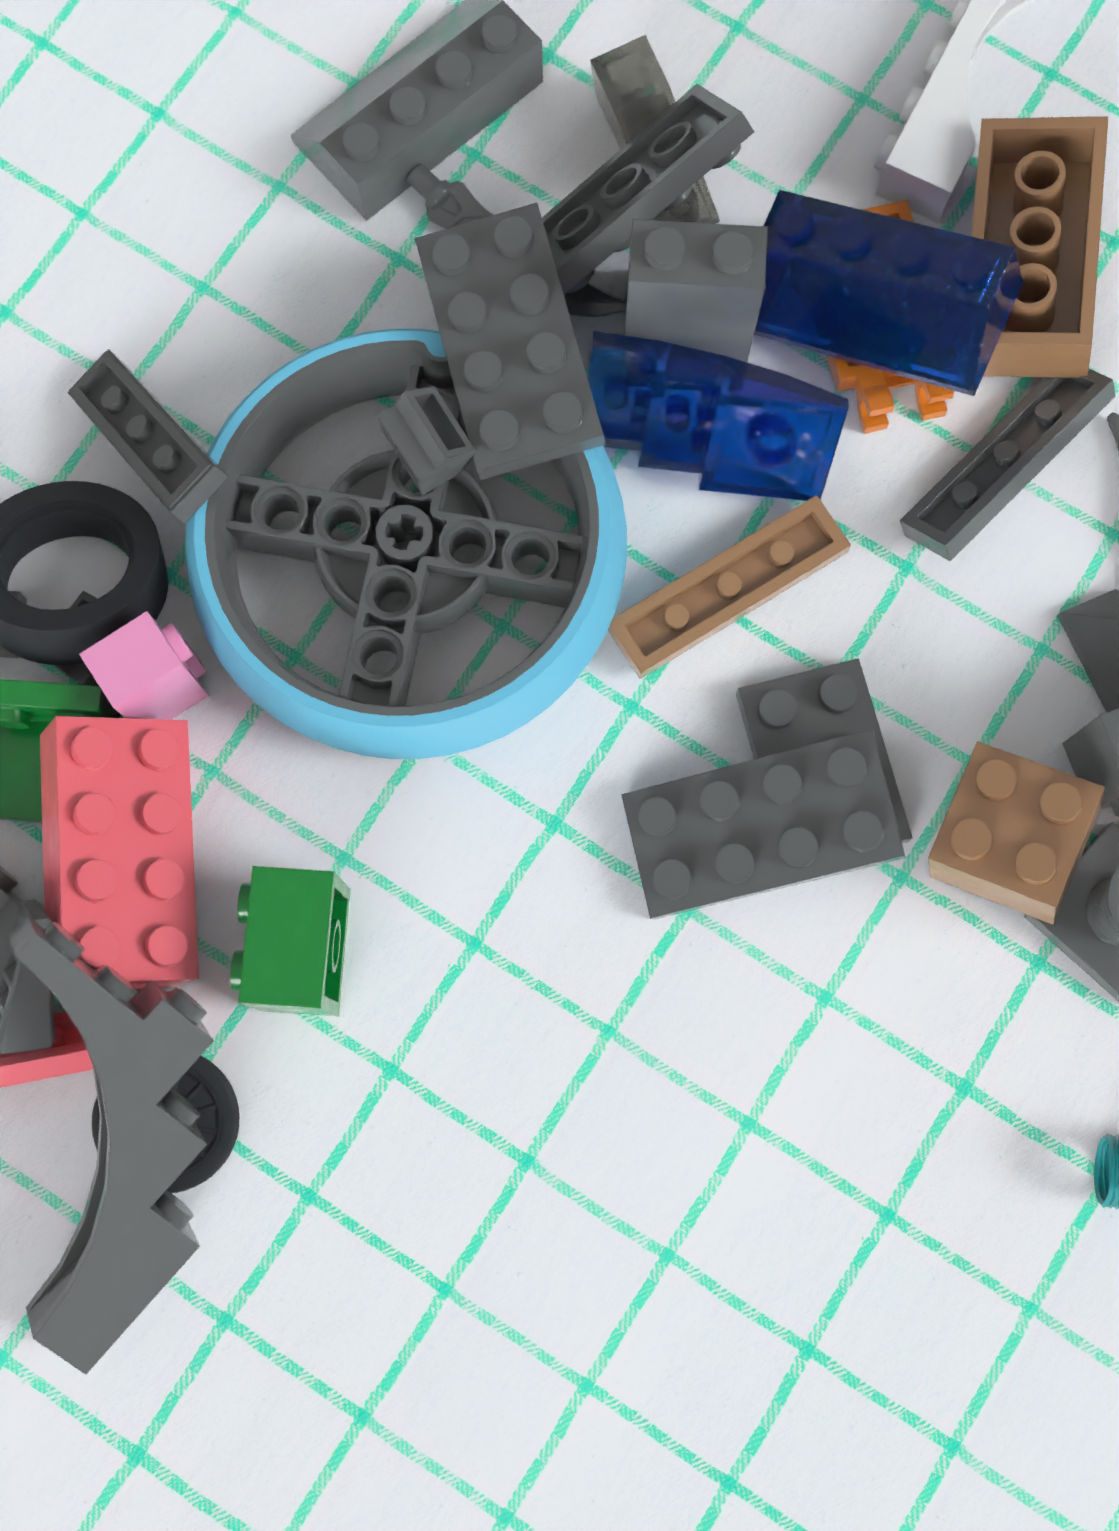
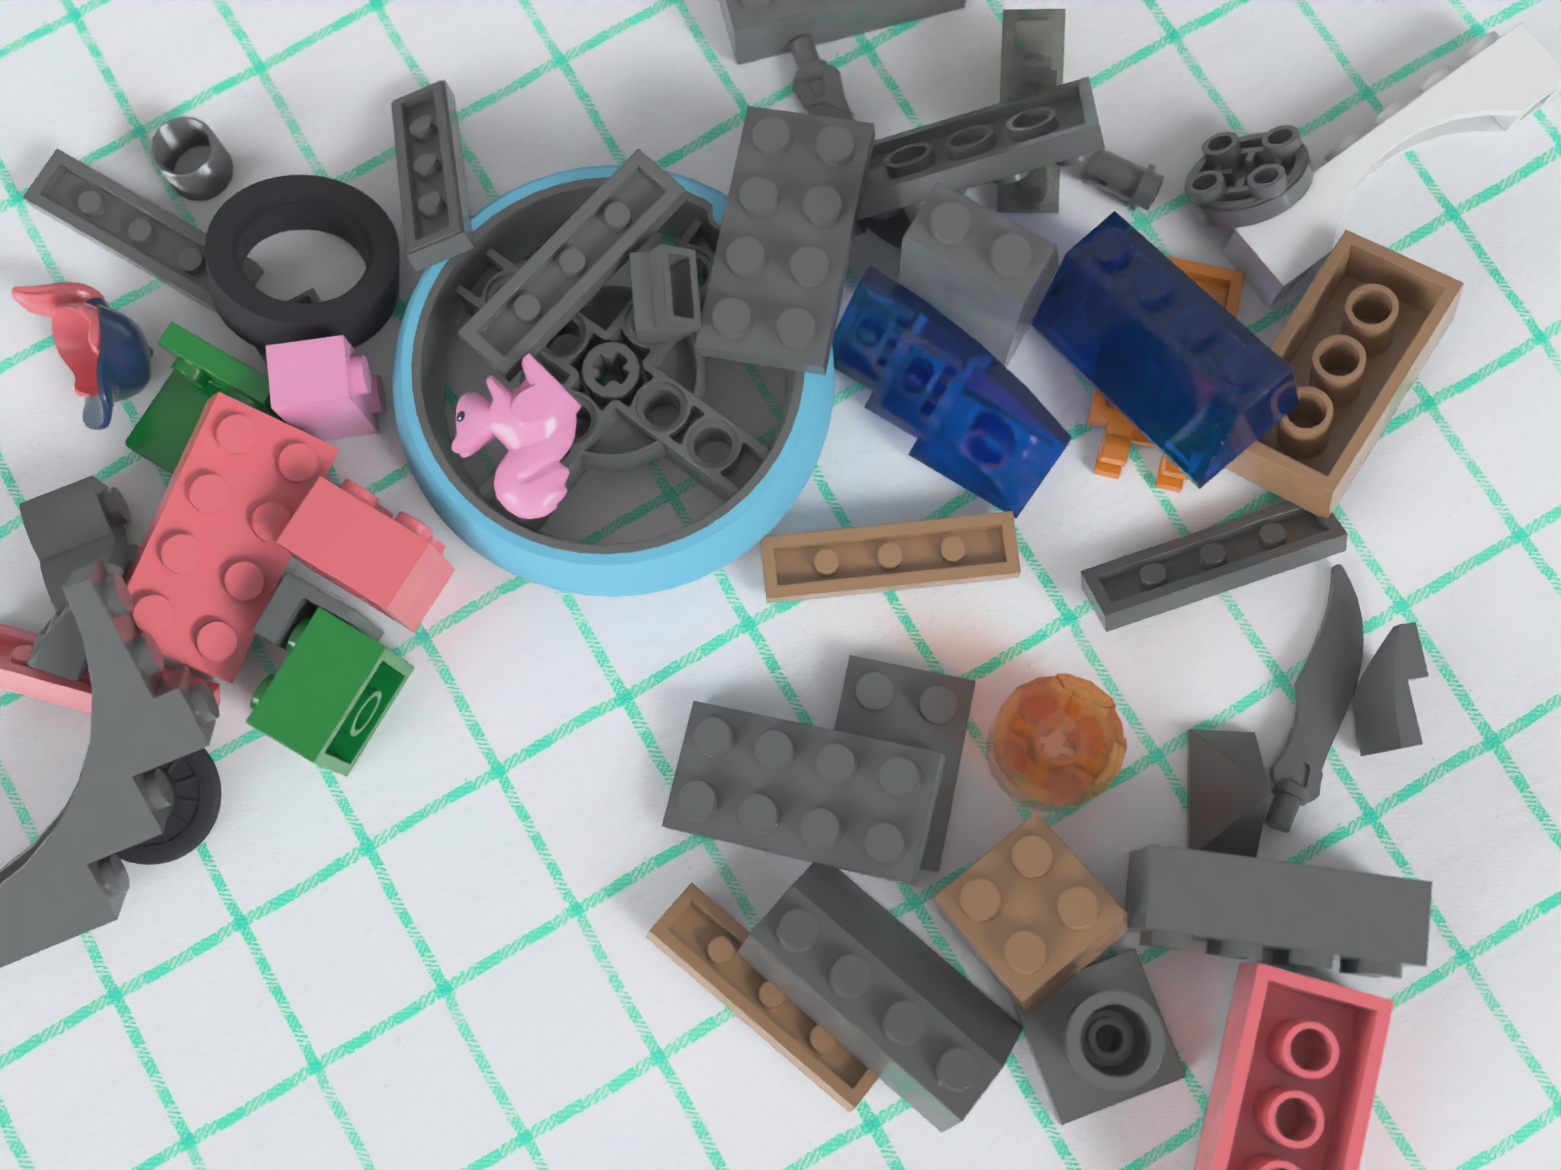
camera: 30 degrees right, 0 degrees up
(223, 878) = (296, 601): none -> dark grey panel
(262, 799) = (368, 553): none -> coral brick
(329, 450) = (573, 264): none -> dark grey plate
(372, 609) = (536, 428): none -> bright pink animal
(763, 167) = (1123, 179): none -> dark grey pin
(824, 1019) = (706, 945): none -> medium nougat plate
(871, 114) = (1249, 177): none -> dark grey tile
(923, 969) = (882, 994): none -> dark grey slope
(984, 652) = (1091, 733): none -> clear orange brick

